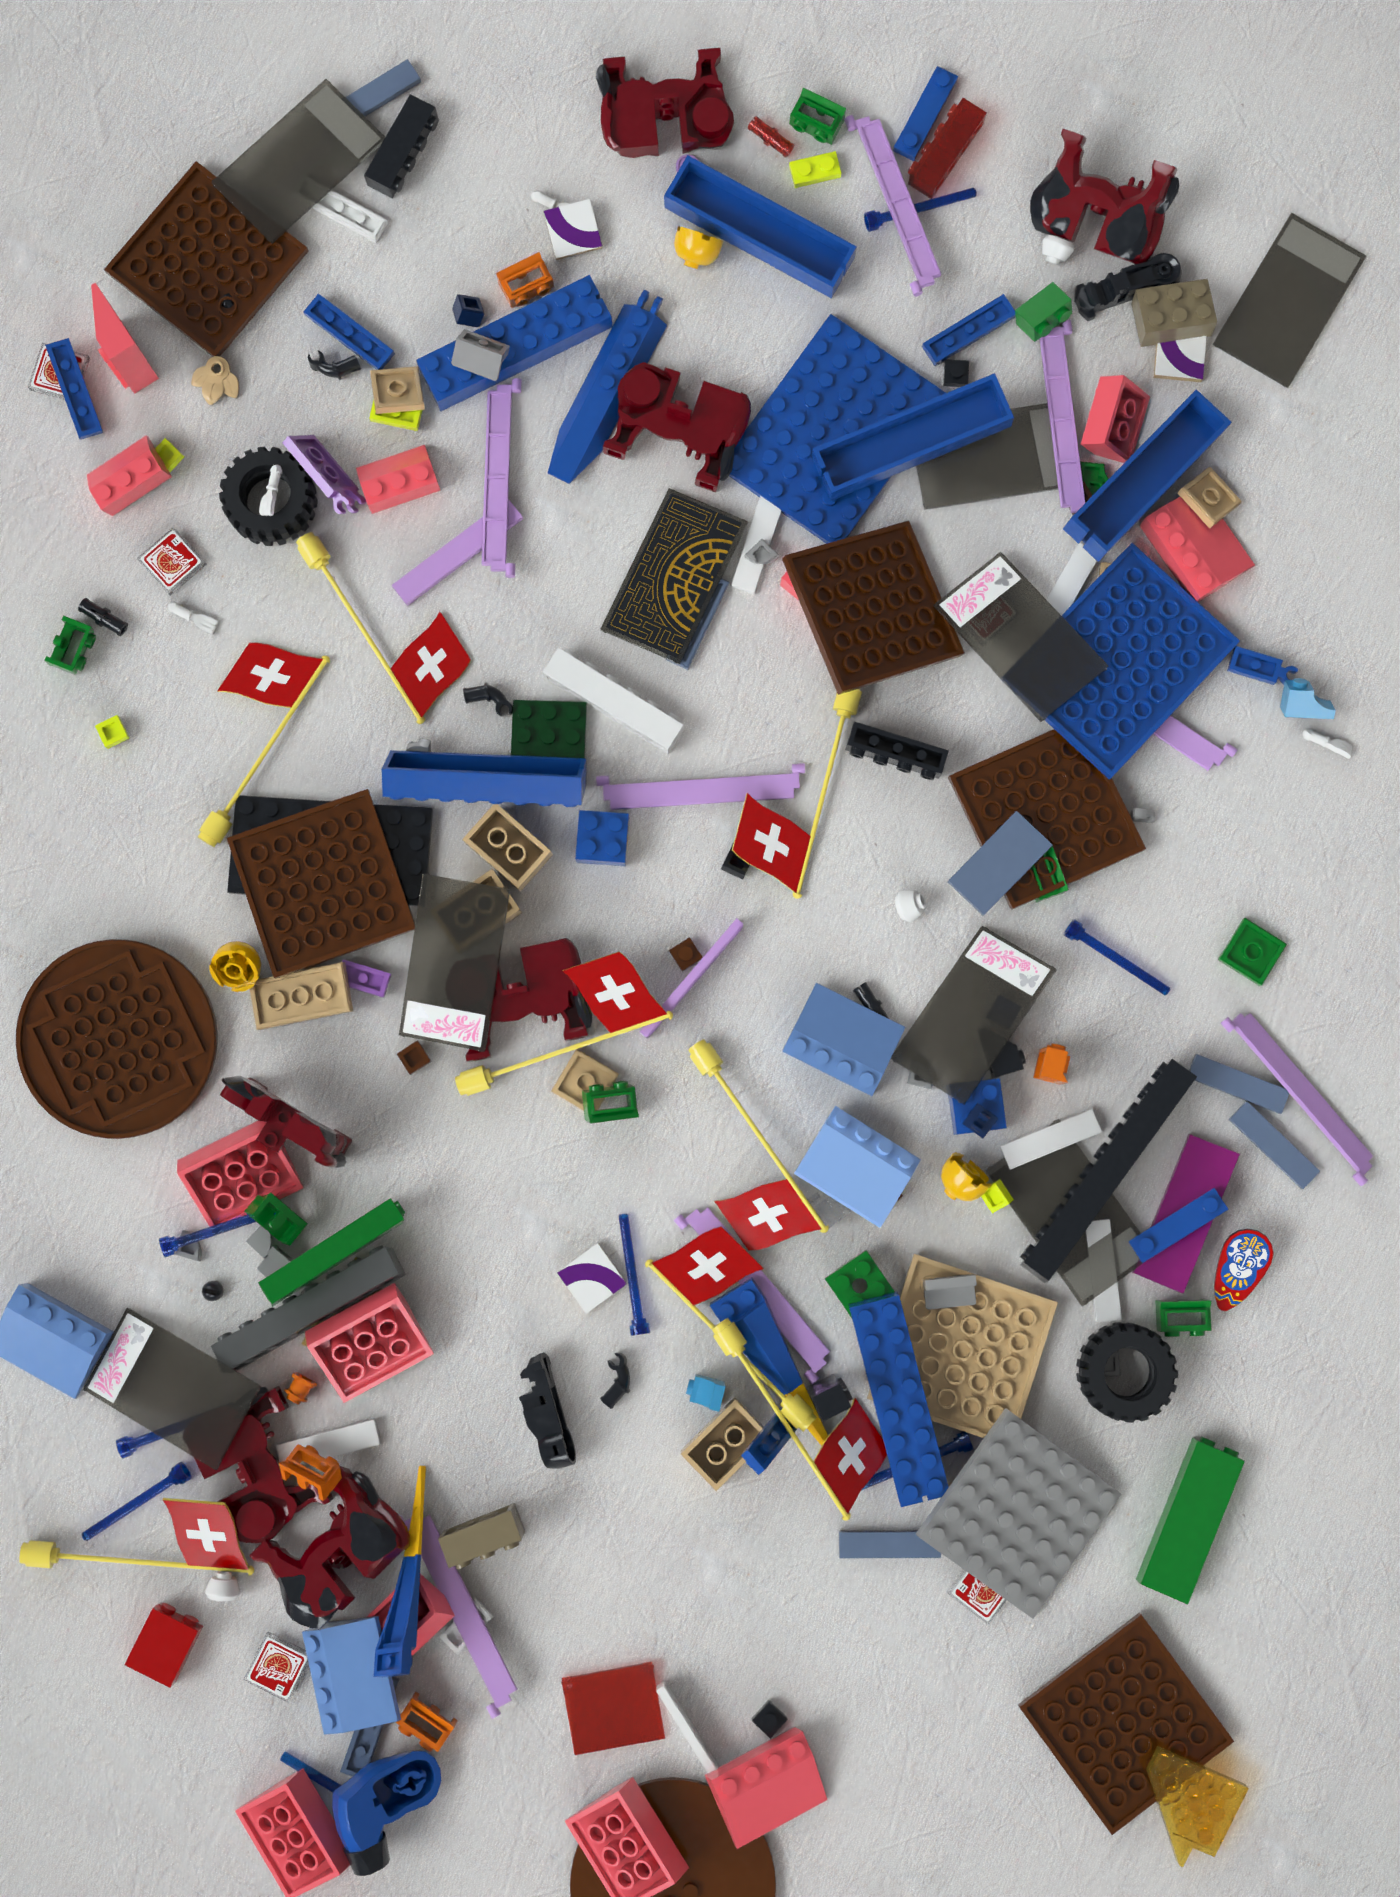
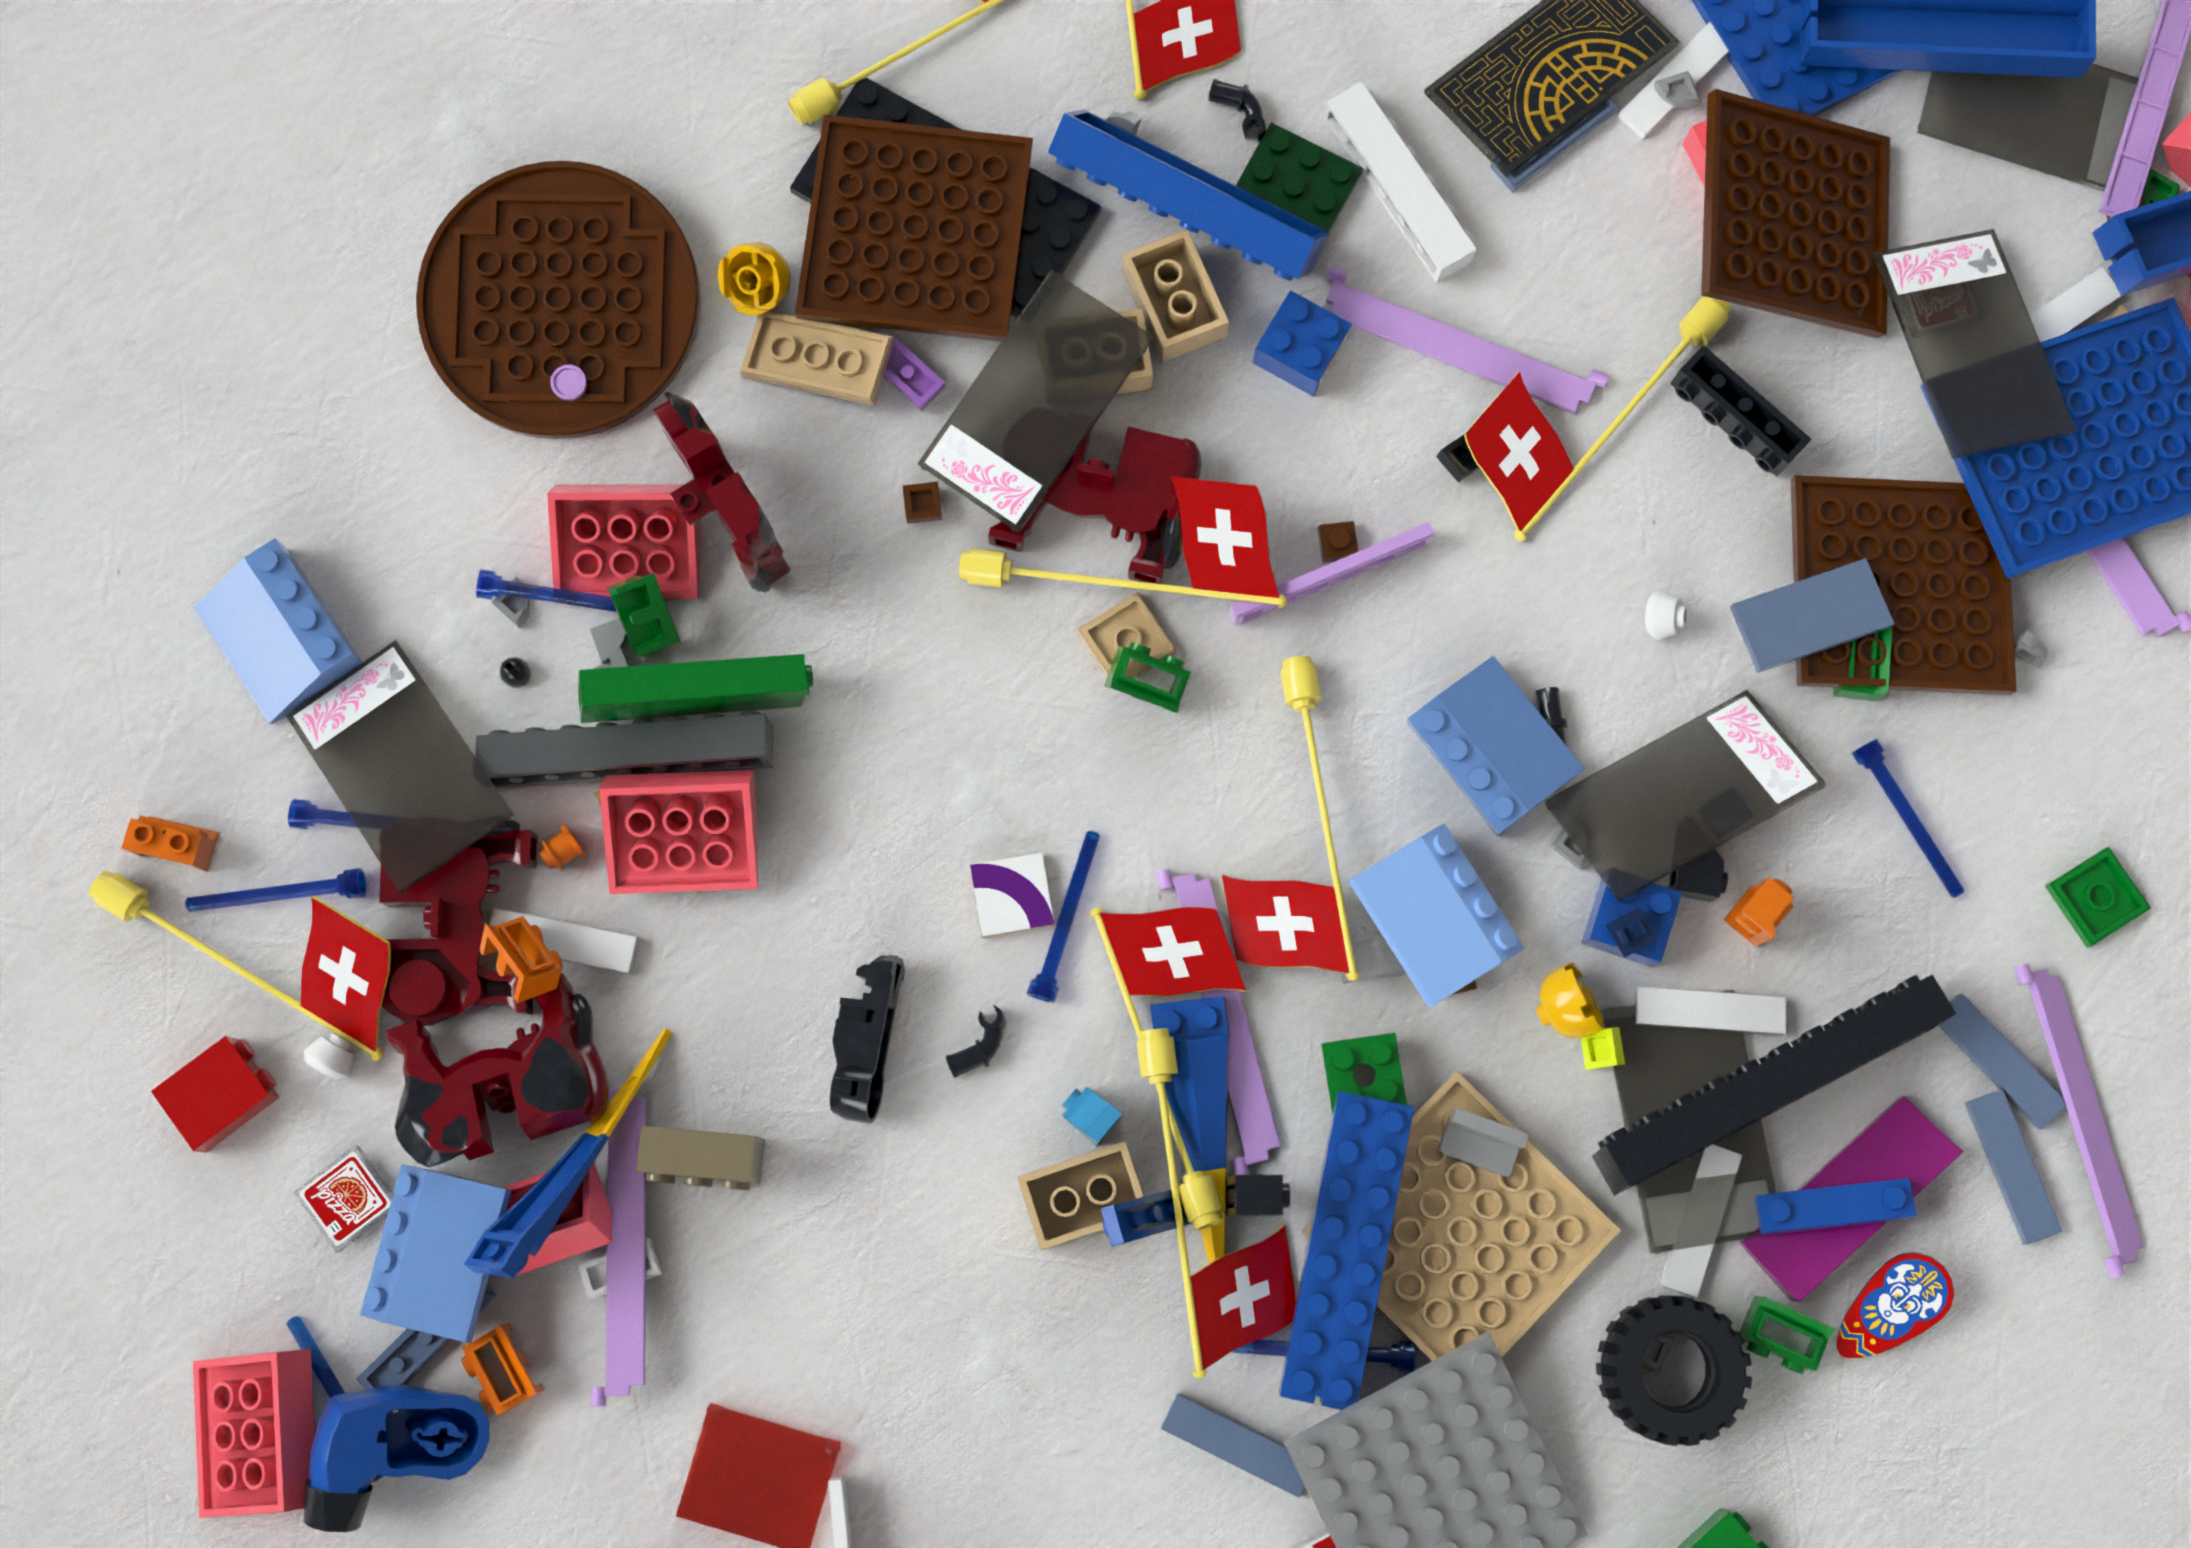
camera: 25 degrees right, 5 degrees down
(63, 1503) = (179, 844): none -> orange window
(151, 1090) = (568, 382): none -> lavender piece

